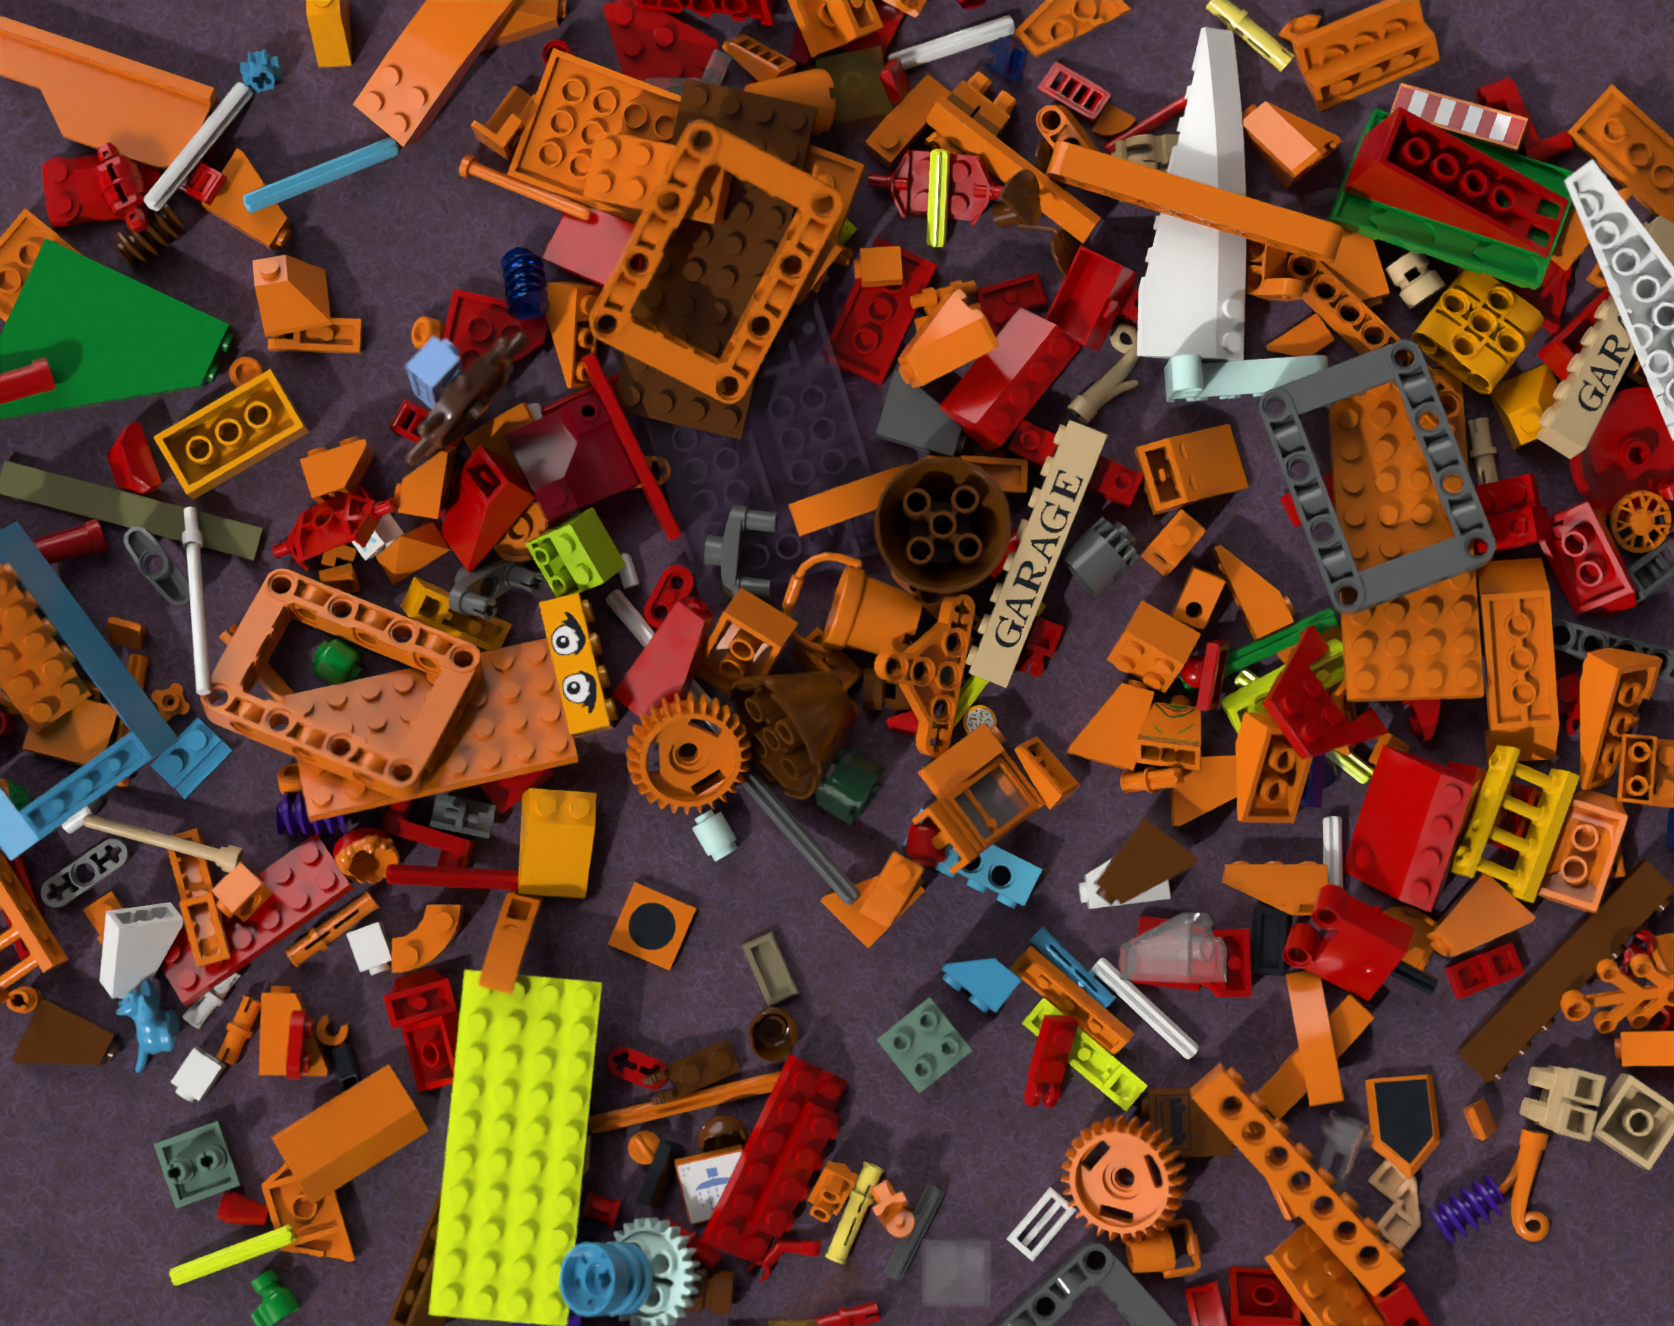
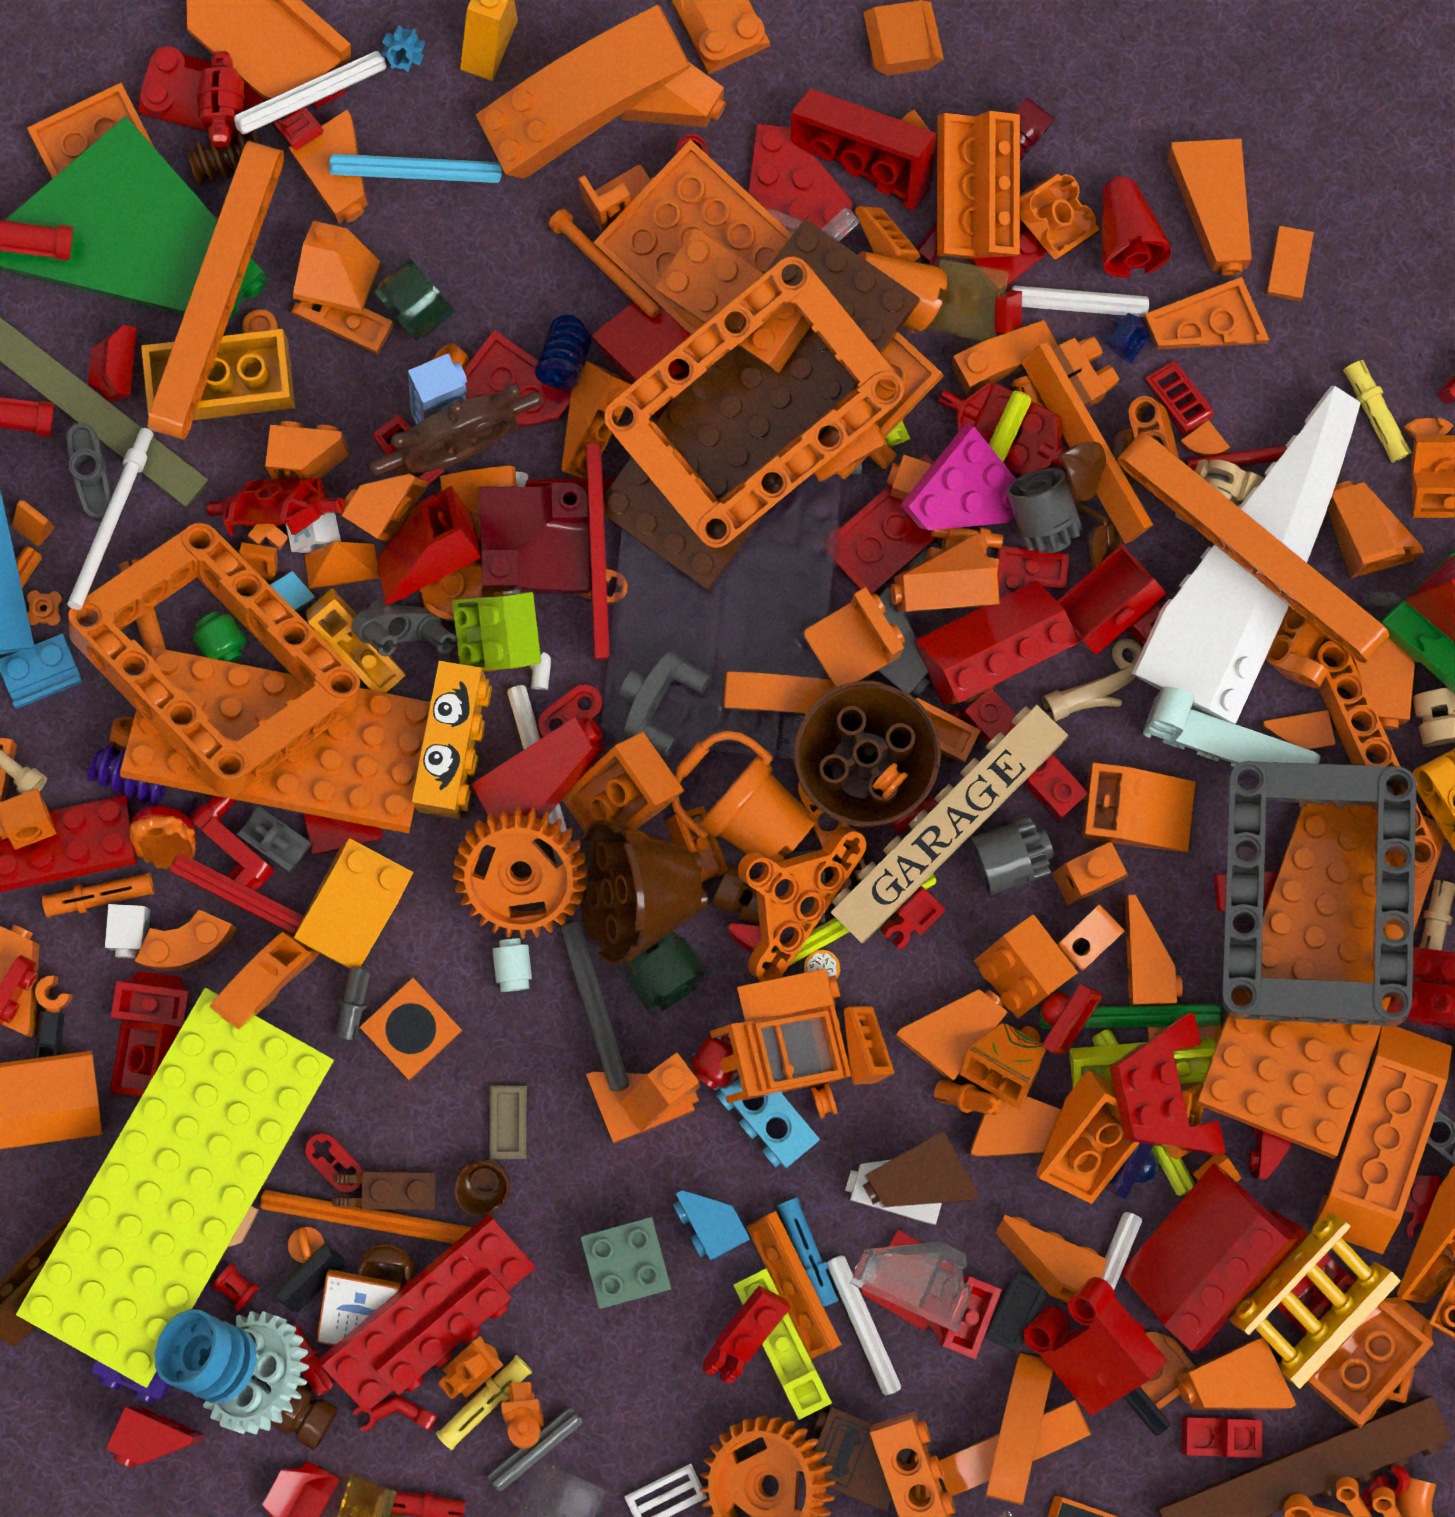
camera: 25 degrees right, 5 degrees down
(197, 360) = (216, 290): none -> orange beam
(374, 291) = (416, 298): none -> clear green brick
(381, 594) = (293, 591): none -> medium azure tile
(593, 926) = (352, 1003): none -> dark grey axle
(888, 429) = (855, 640): none -> orange bracket
(925, 254) = (962, 487): none -> dark pink plate
(973, 541) = (889, 780): none -> orange bush
(1001, 244) = (1044, 510): none -> dark grey gear
(1030, 834) = (824, 1100): none -> orange bush

